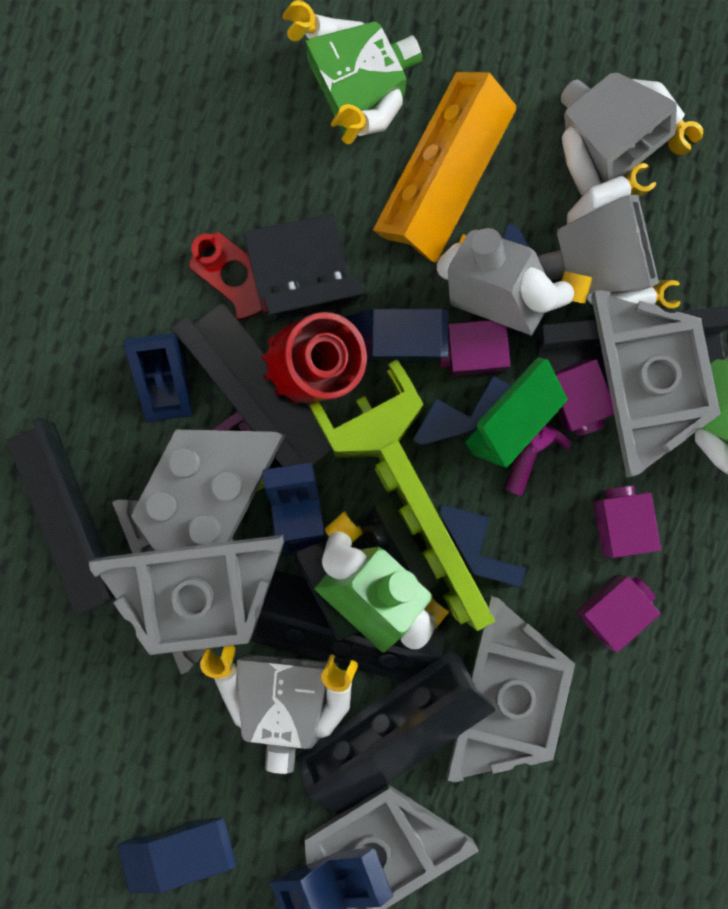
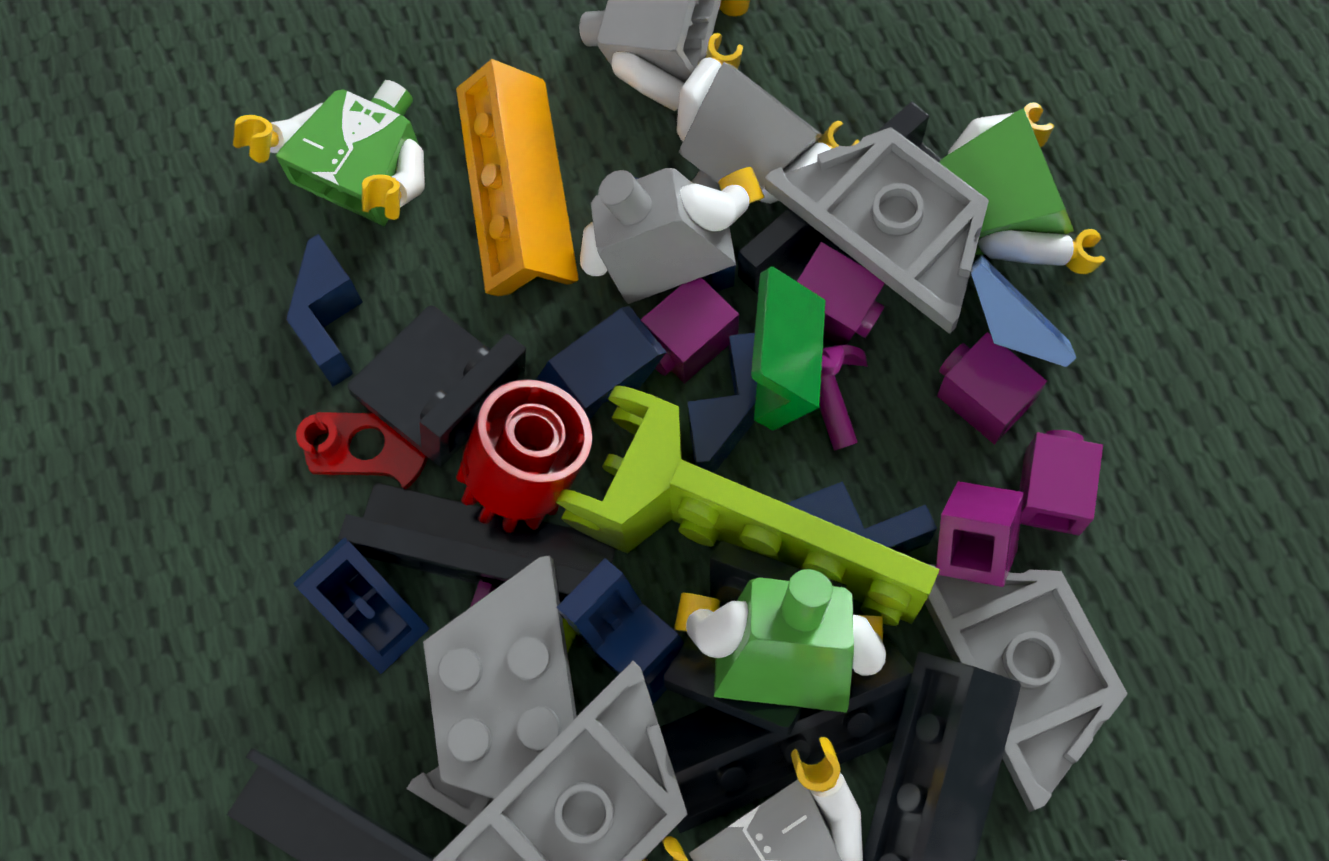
camera: 30 degrees left, 15 degrees down
(271, 158) = (319, 298): none -> dark blue slope
(544, 608) = (979, 533): none -> magenta brick
(675, 500) = (1015, 320): none -> medium blue slope

